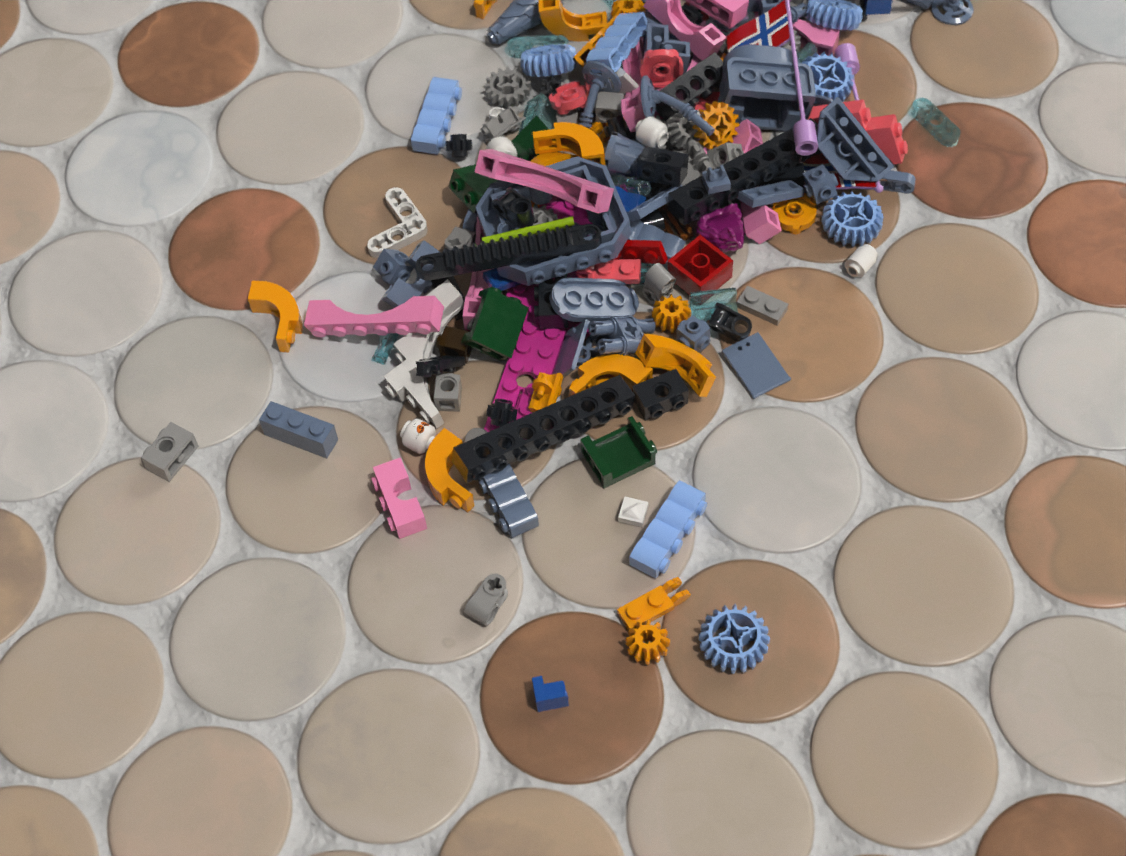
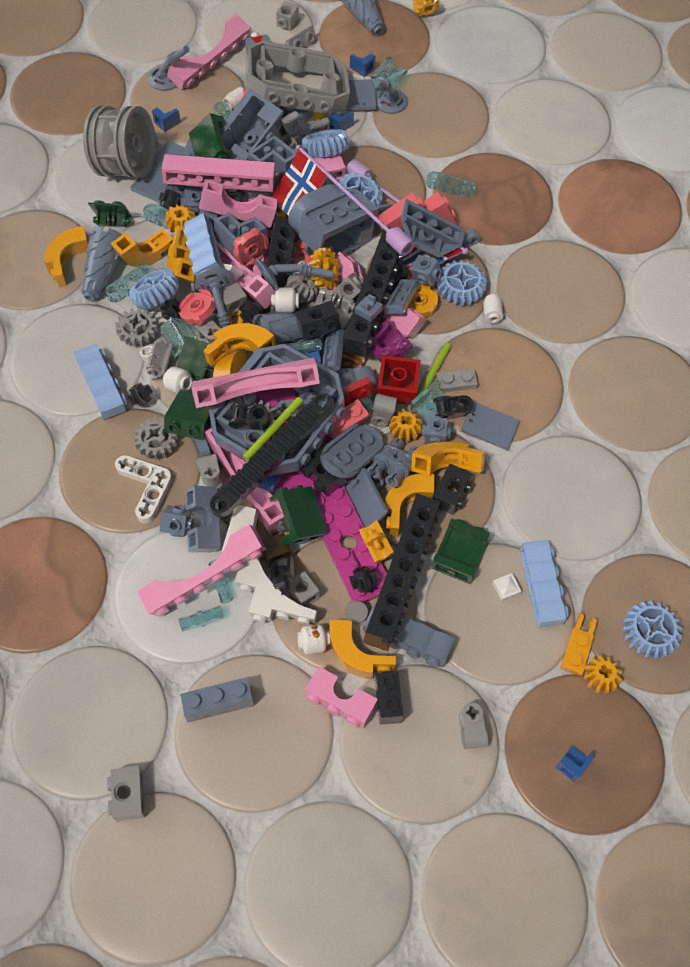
camera: 45 degrees left, 5 degrees up
(276, 300) = (112, 608): light orange arch -> none
(345, 359) = (201, 618): none -> clear light blue pin
(434, 191) = (155, 440): none -> light grey gear
(437, 525) = (389, 698): none -> black brick
(760, 279) = (435, 367): none -> lime bar

